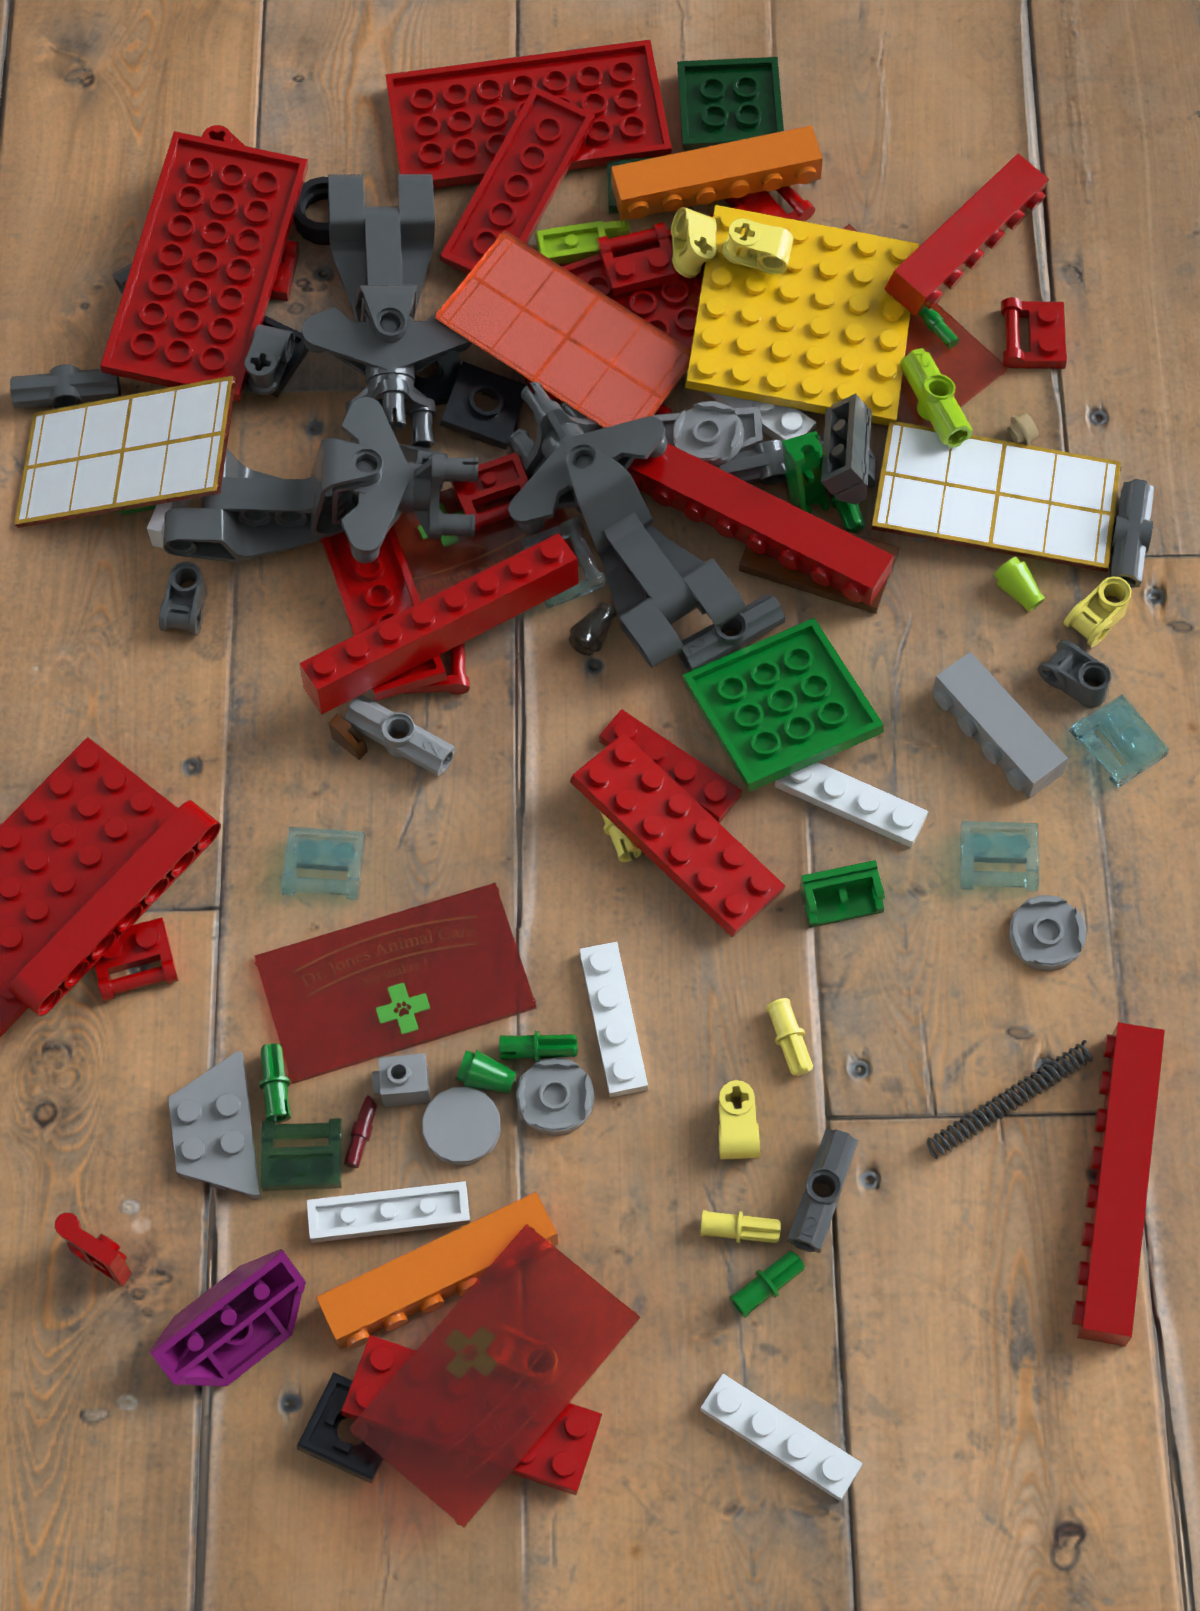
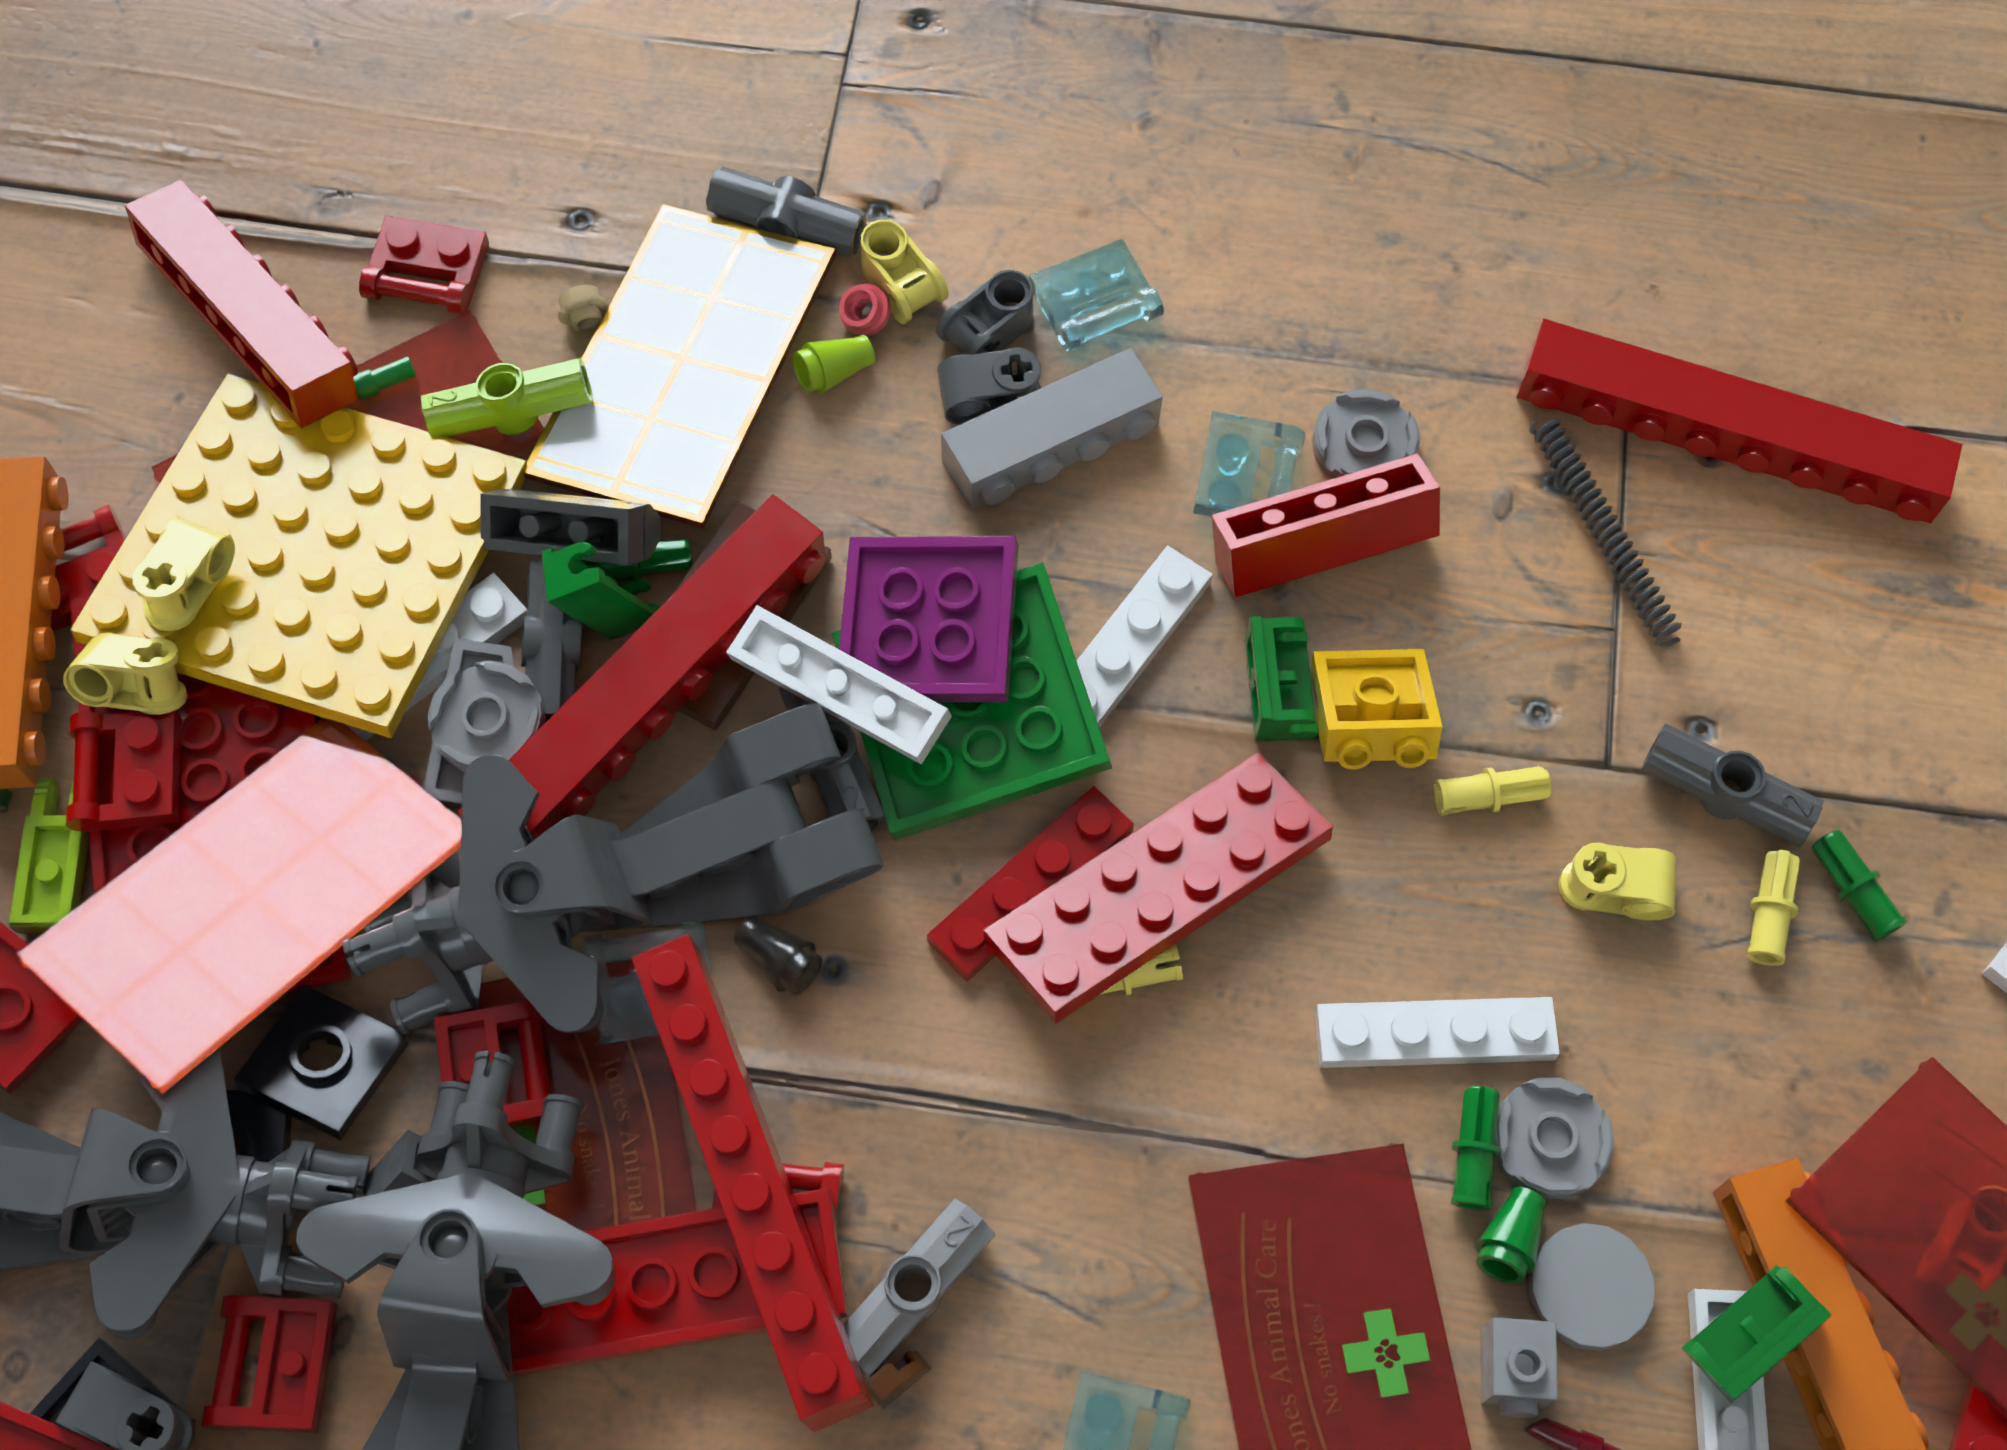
camera: 85 degrees left, 0 degrees up
(305, 433) = (289, 1365): none -> red plate
(433, 1207) = (1756, 1332): none -> green hinge
(764, 615) = (839, 684): none -> white plate
(826, 662) = (933, 612): none -> magenta plate
(832, 952) = (1376, 707): none -> yellow plate
(960, 903) = (1326, 525): none -> red brick
(1024, 680) = (985, 381): none -> dark grey piece
(1065, 595) = (853, 303): none -> coral plate

